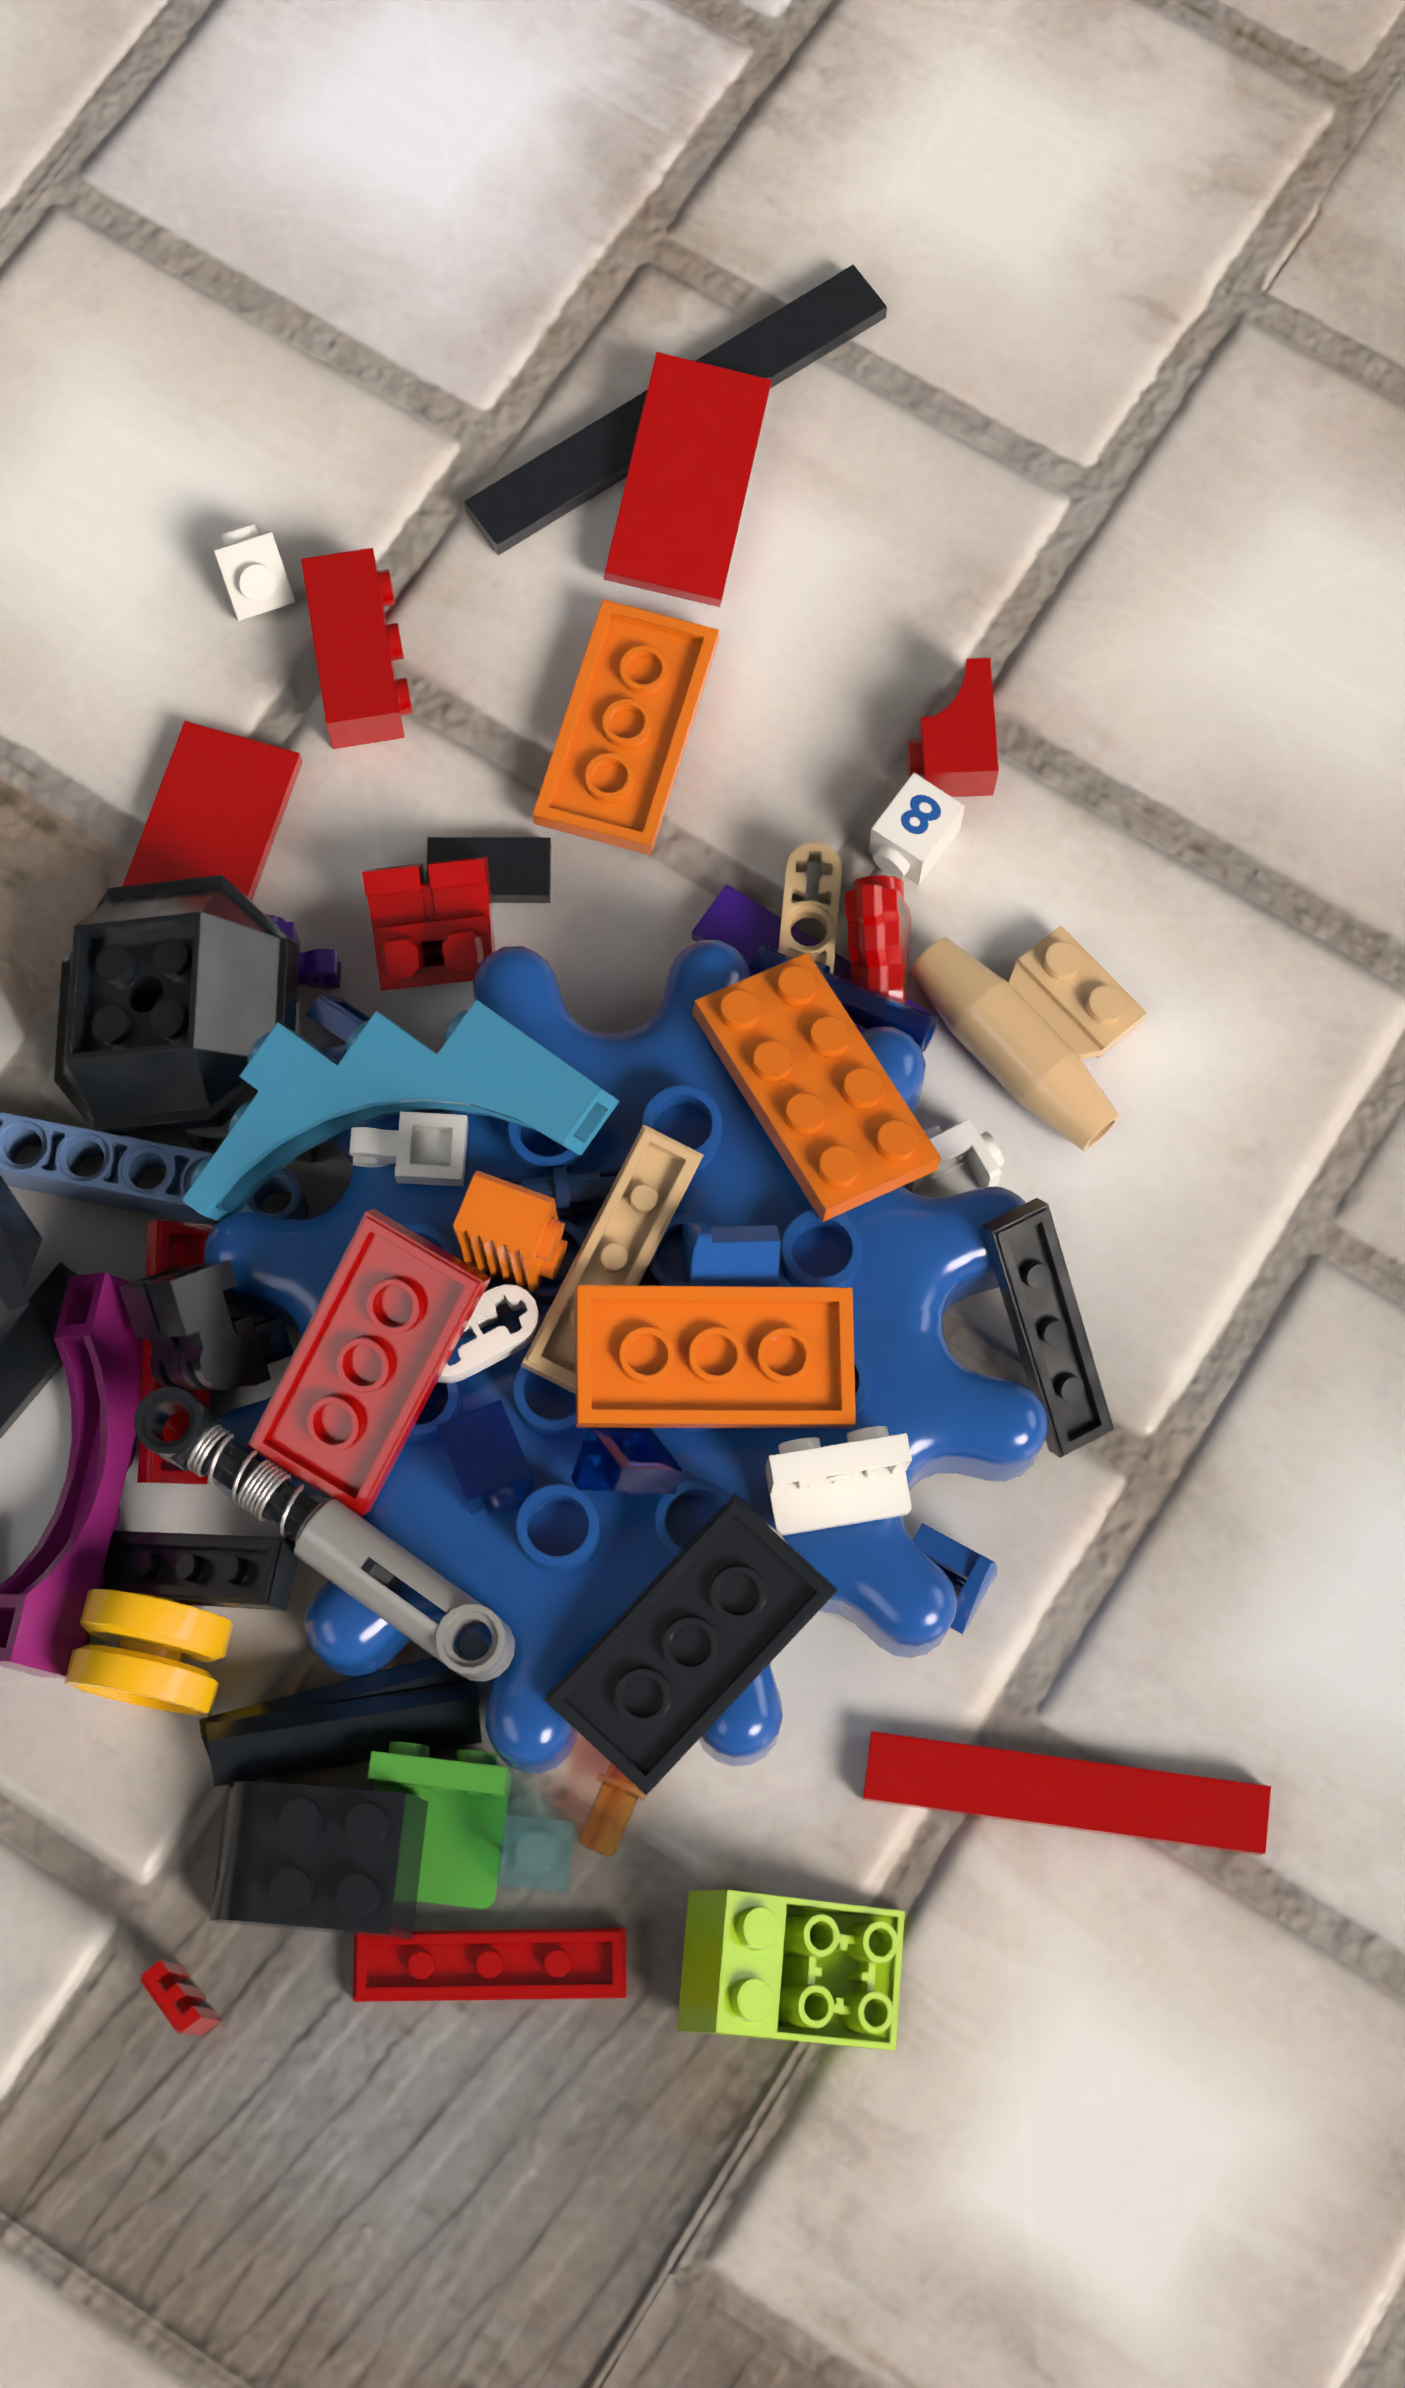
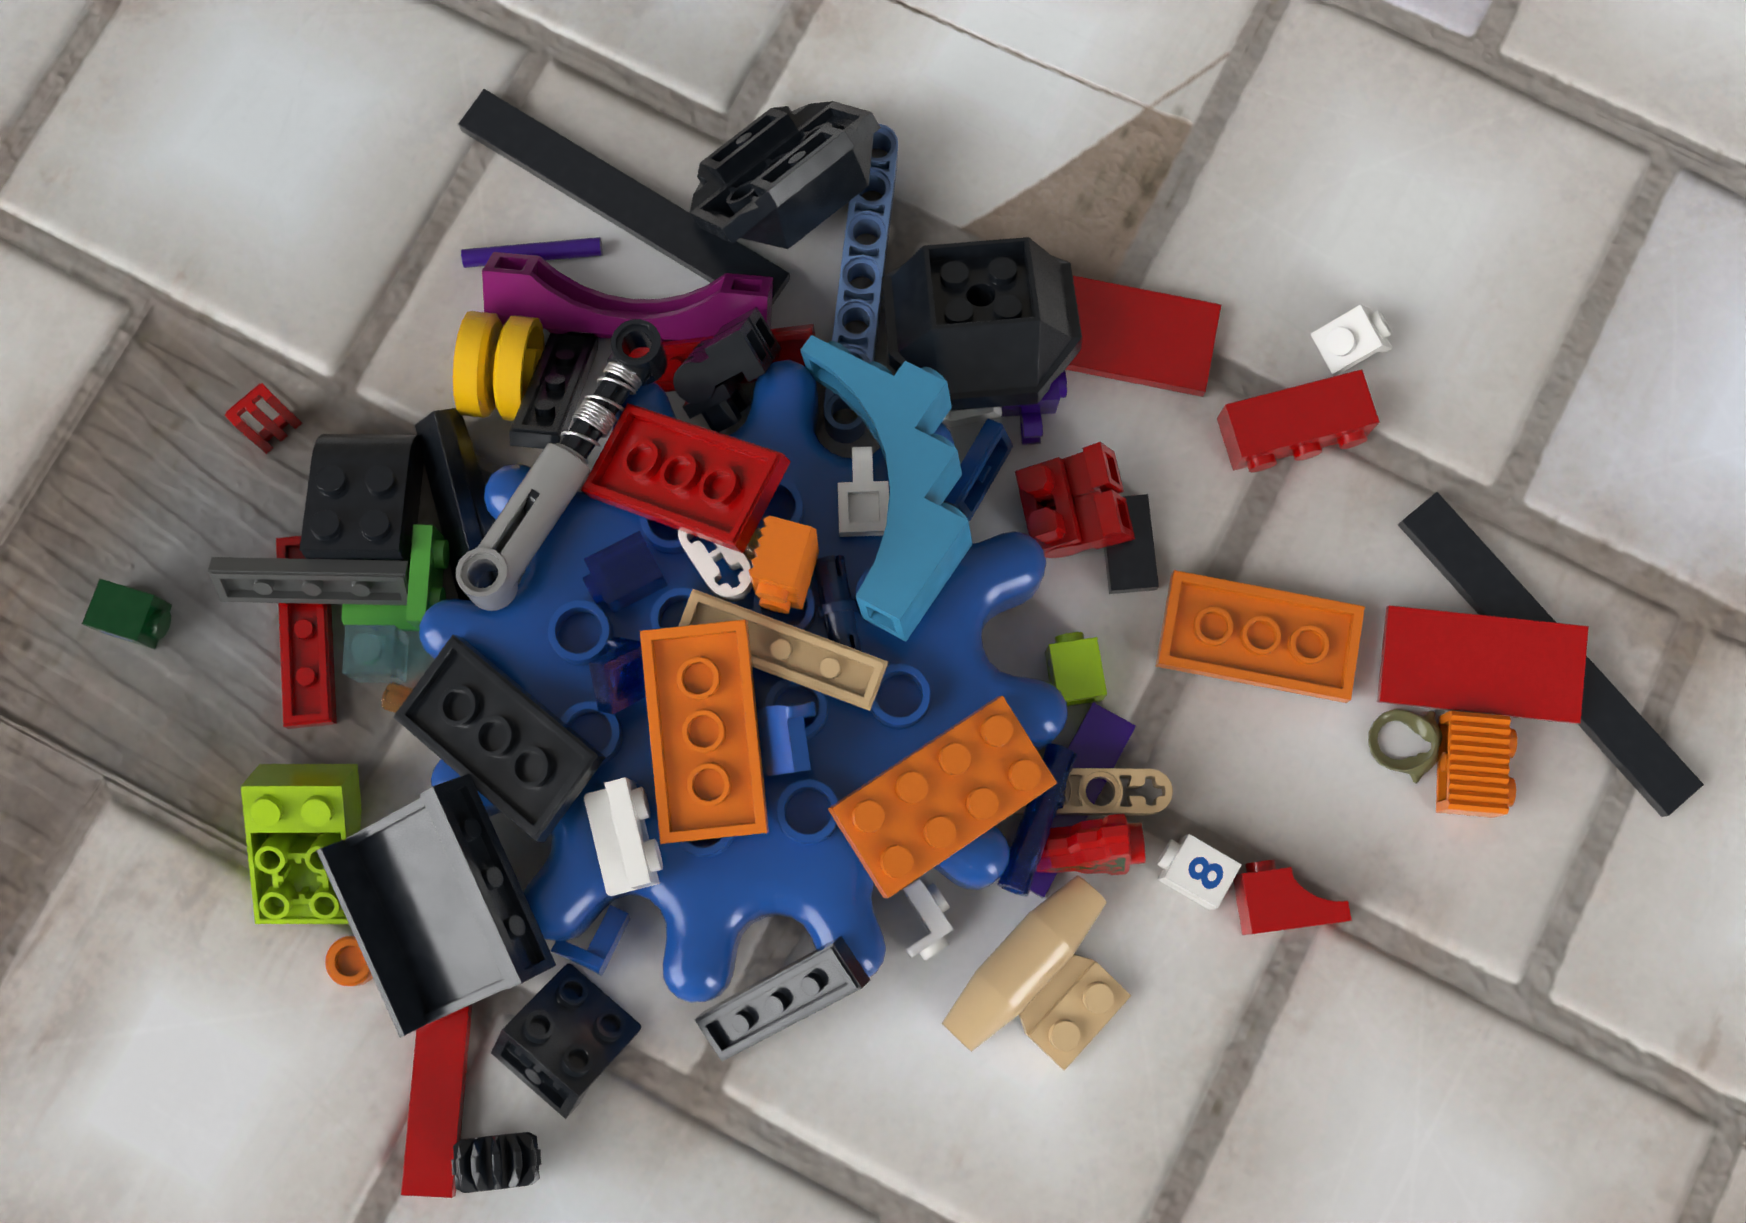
camera: 85 degrees right, 5 degrees up
(428, 1936) = (310, 580): none -> dark grey tile
(443, 2218) = (128, 614): none -> dark green brick
(645, 944) = (1076, 668): none -> lime brick
(753, 560) = (1421, 725): none -> olive piece
(809, 504) = (1475, 764): none -> orange brick
(900, 1756) = (436, 906): none -> black panel
(955, 1913) = (346, 963): none -> orange tile
(1079, 1626) = (565, 1039): none -> black bracket
(1230, 1715) = (496, 1162): none -> black gear

